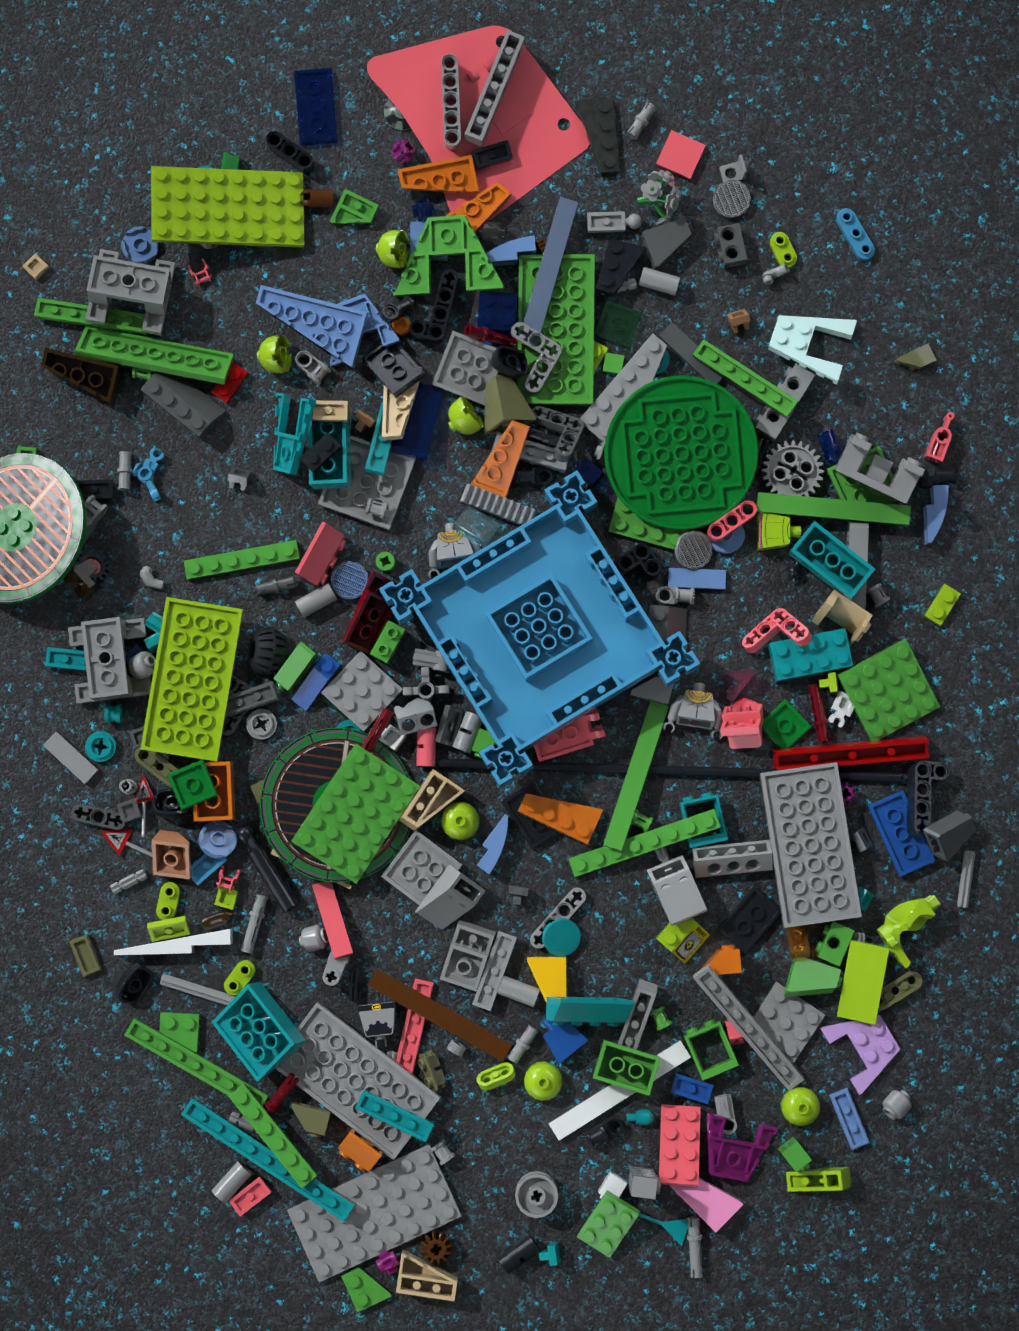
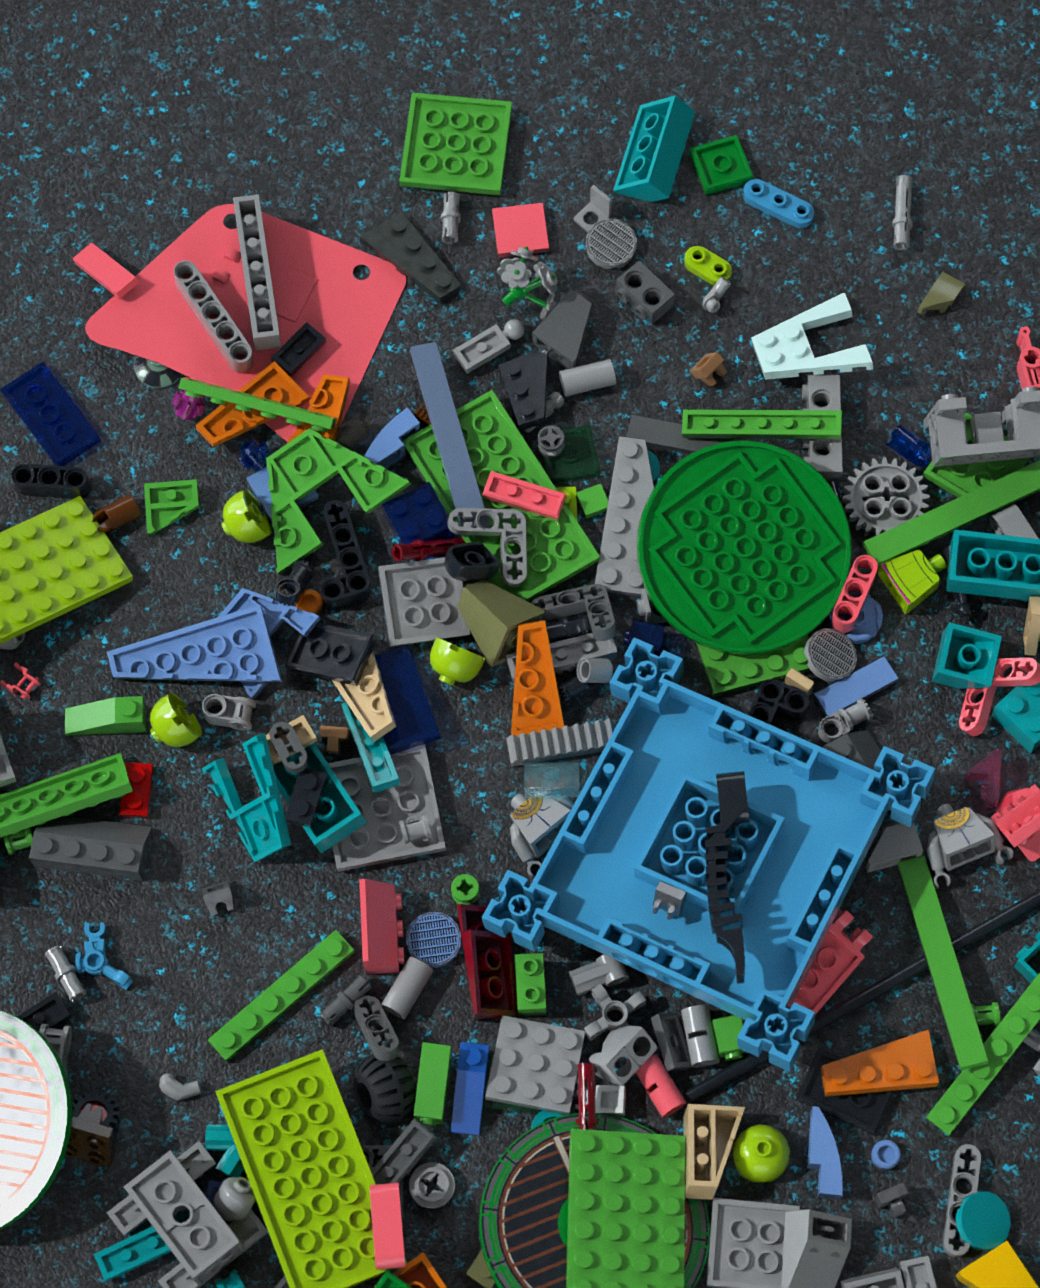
camera: 35 degrees left, 15 degrees down
(217, 735) = (387, 1226): none -> coral beam
(238, 326) = (107, 717): none -> bright green slope
(277, 620) = (375, 1038): none -> dark grey beam
(321, 416) = (282, 749): none -> dark grey beam
(403, 29) = (105, 270): none -> coral tile
(437, 174) = (268, 407): none -> bright green plate
(495, 645) = (668, 899): none -> flat silver tile
(531, 865) = (885, 1155): none -> medium blue tile
(542, 475) = (594, 670): none -> light grey beam
(563, 616) = (724, 921): none -> black piece
(571, 336) = (524, 495): none -> coral tile
(608, 307) = (551, 435): none -> flat silver wheel
(663, 555) = (799, 681): none -> tan tile
(676, 71) = (455, 144): none -> bright green plate
(773, 602) = (966, 657): none -> teal slope
(799, 151) = (655, 149): none -> teal slope
(836, 186) = (721, 164): none -> green tile
(925, 294) = (902, 222): none -> light grey pin

